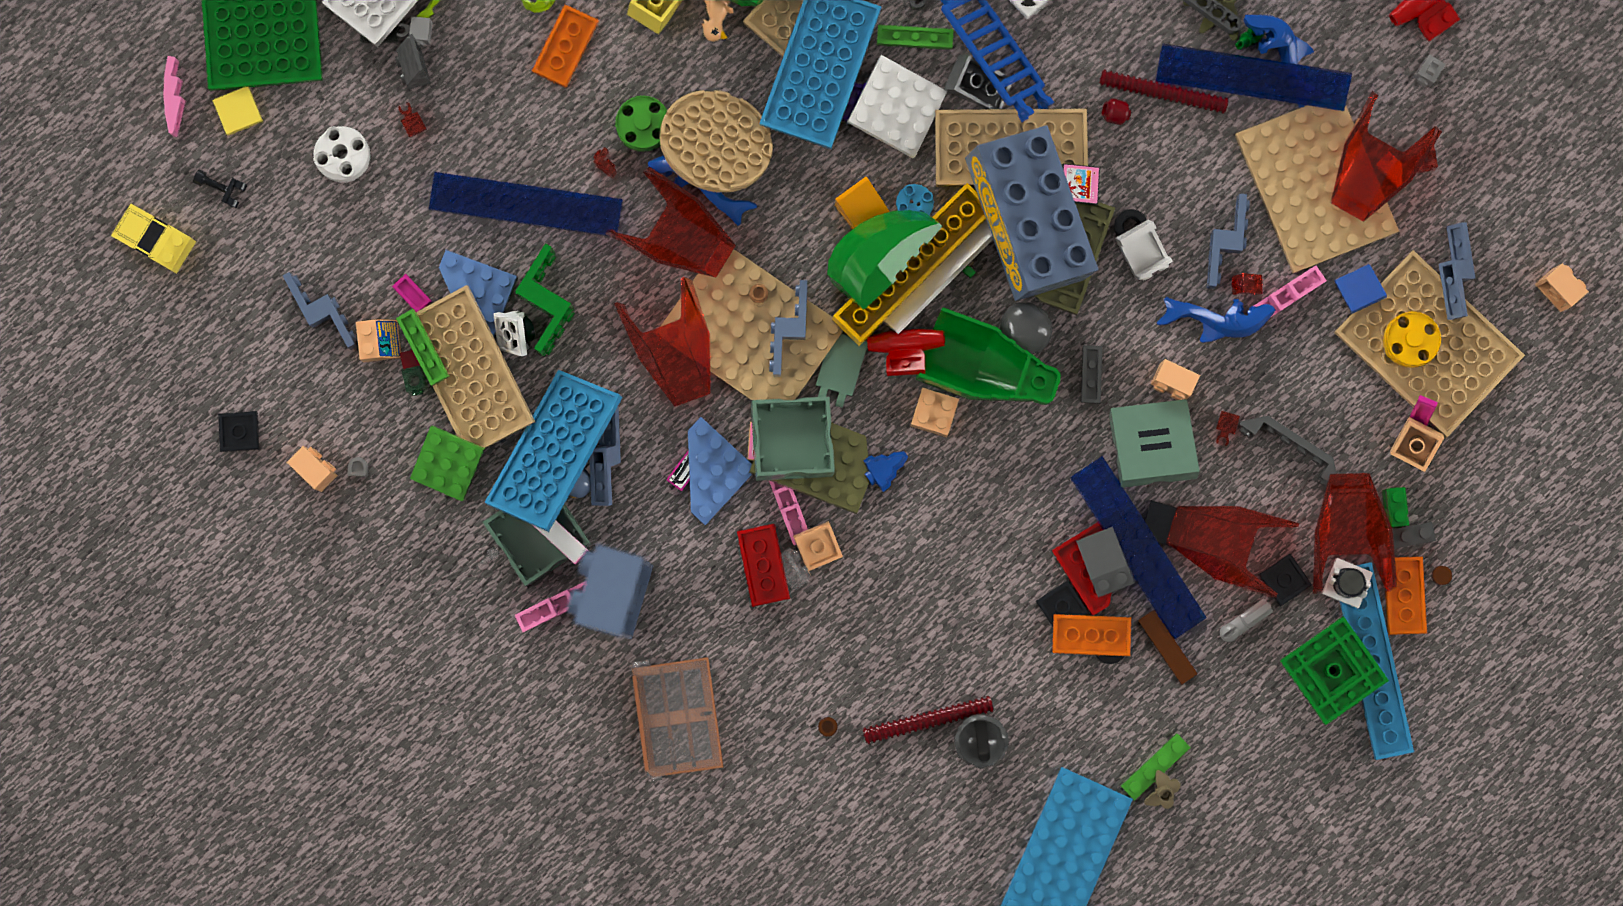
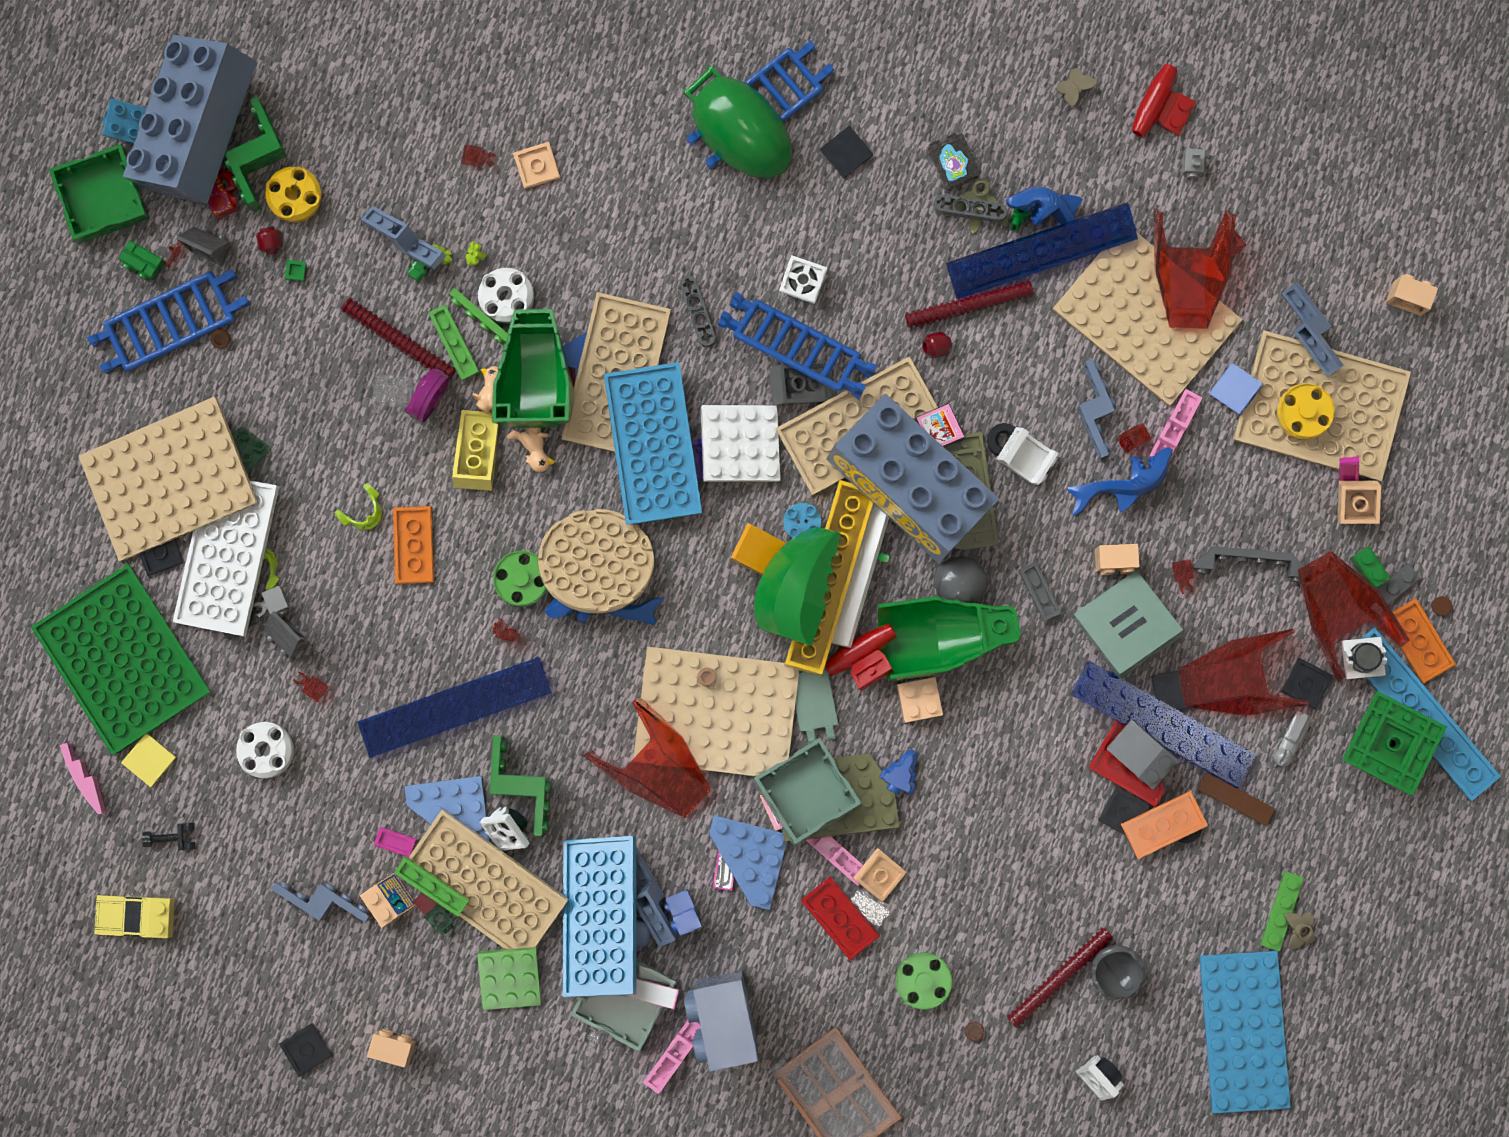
camera: 25 degrees left, 0 degrees up
(357, 467) = (430, 1024): light grey tile -> none
(629, 487) = (683, 913): none -> brick
(684, 233) = (611, 660): clear red windscreen -> none
(789, 328) = (751, 694): sand blue bracket -> none
(806, 658) = (923, 981): none -> bright green piece
(915, 37) = (722, 372): bright green plate -> none
(918, 824) = (1101, 1077): none -> white piece

